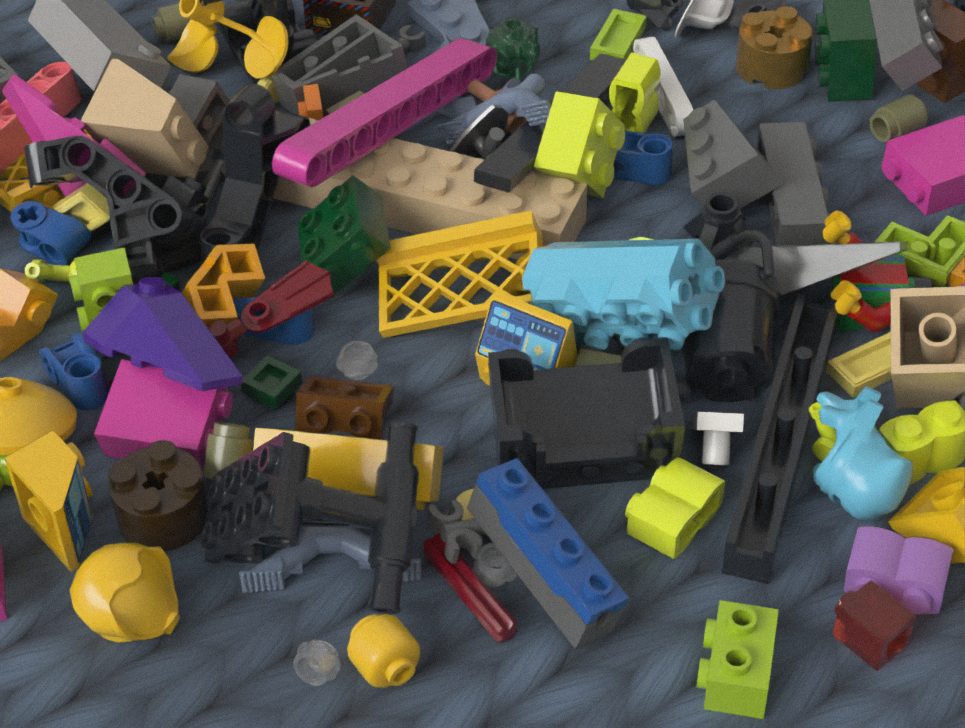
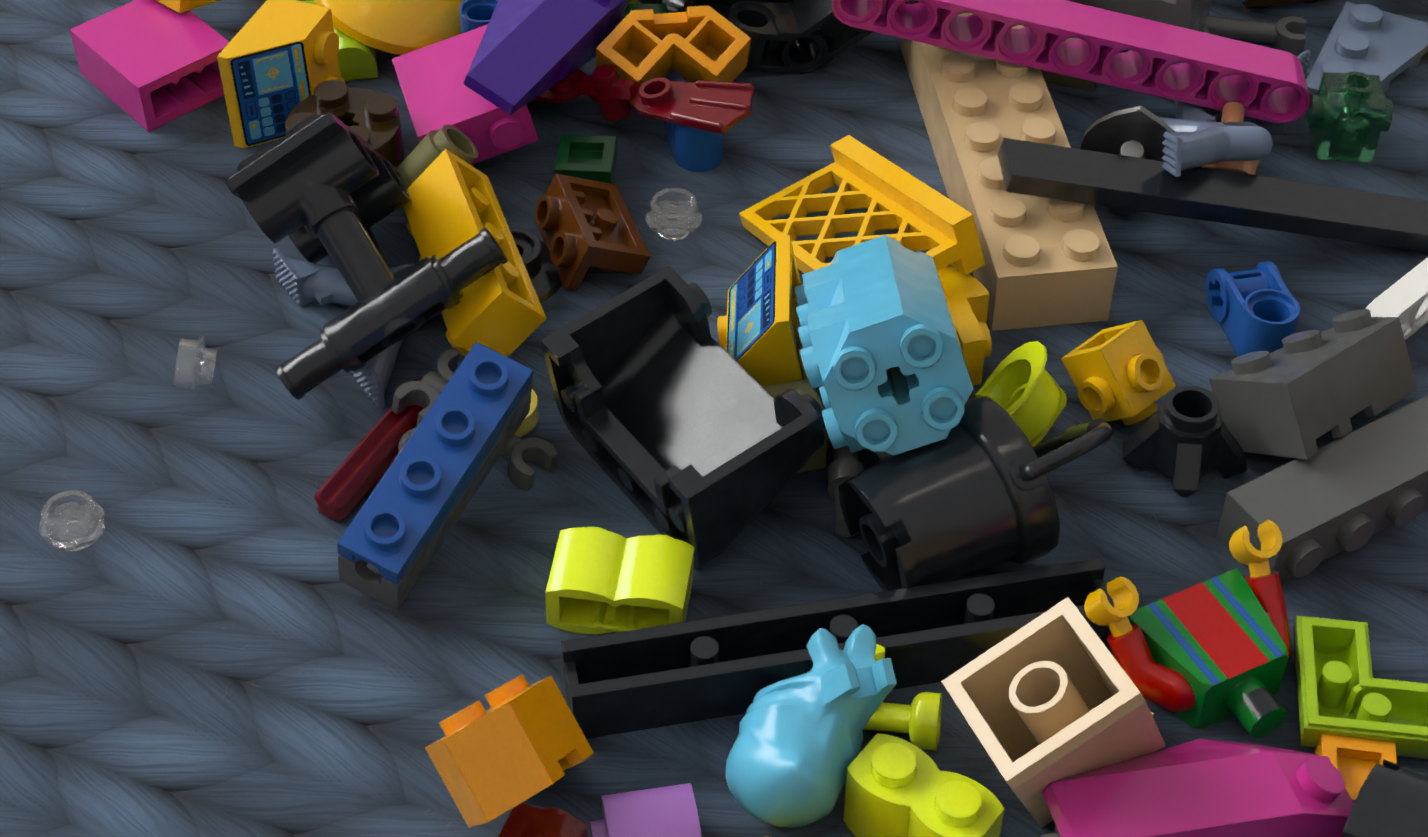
camera: 60 degrees right, 0 degrees up
(126, 592) = (182, 178): yellow helmet -> none
(345, 232) = (839, 101): dark green brick -> none
(382, 649) = (229, 406): yellow head -> none
(580, 142) = (1171, 225): neon yellow brick -> none
(634, 92) = (1348, 251): neon yellow brick -> none
(656, 219) = (1119, 373): none -> yellow brick
(717, 434) = (774, 565): white tile -> none
(740, 659) = (379, 738): lime brick -> none
(807, 591) = (509, 750): none -> light orange brick
(808, 265) = (1153, 531): wedge -> none

